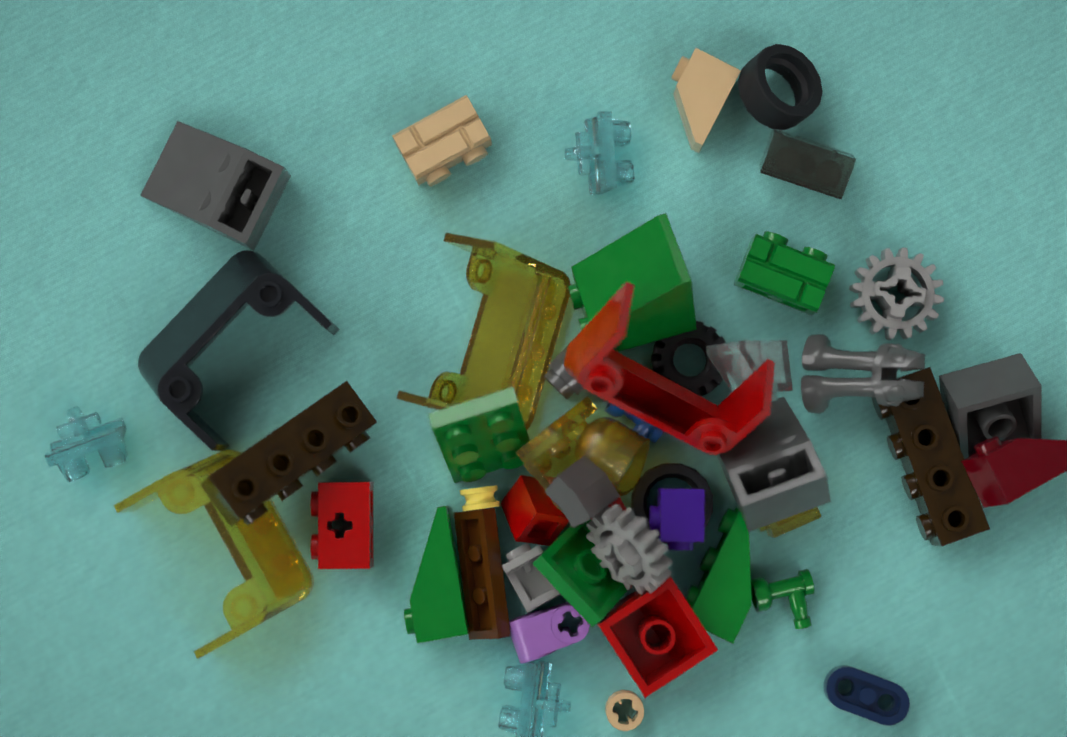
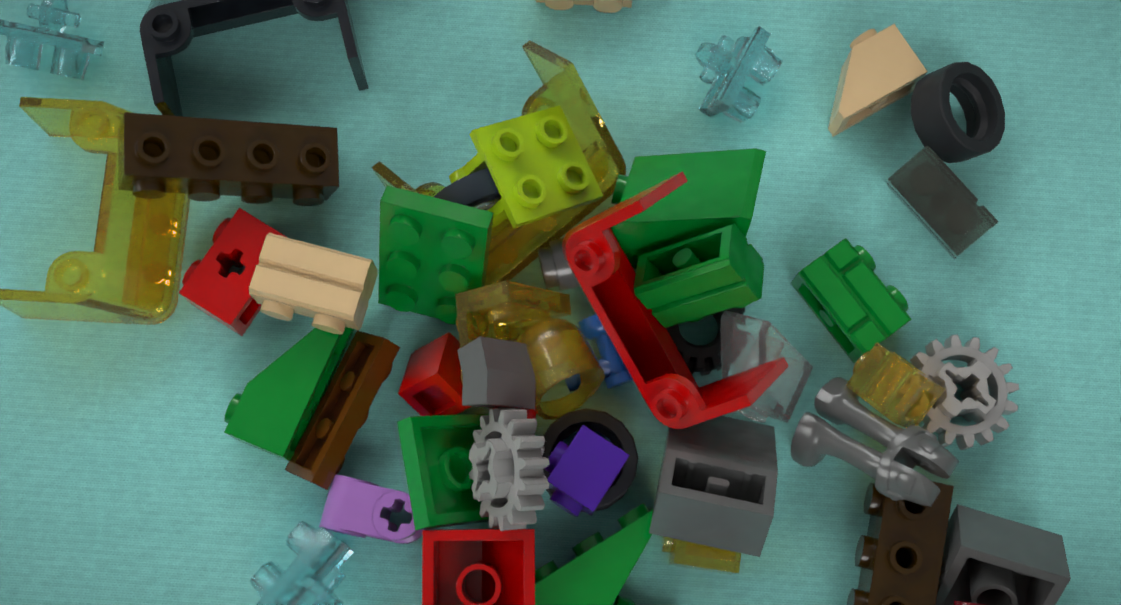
camera: 30 degrees right, 10 degrees down
(412, 505) = (312, 283): none -> tan brick
(479, 498) = (394, 329): light yellow bush -> none
(509, 328) = (524, 170): none -> lime plate
(526, 579) = (382, 443): light grey bracket -> none
(676, 336) = (699, 276): none -> green brick
(851, 323) = (894, 386): none -> clear yellow brick

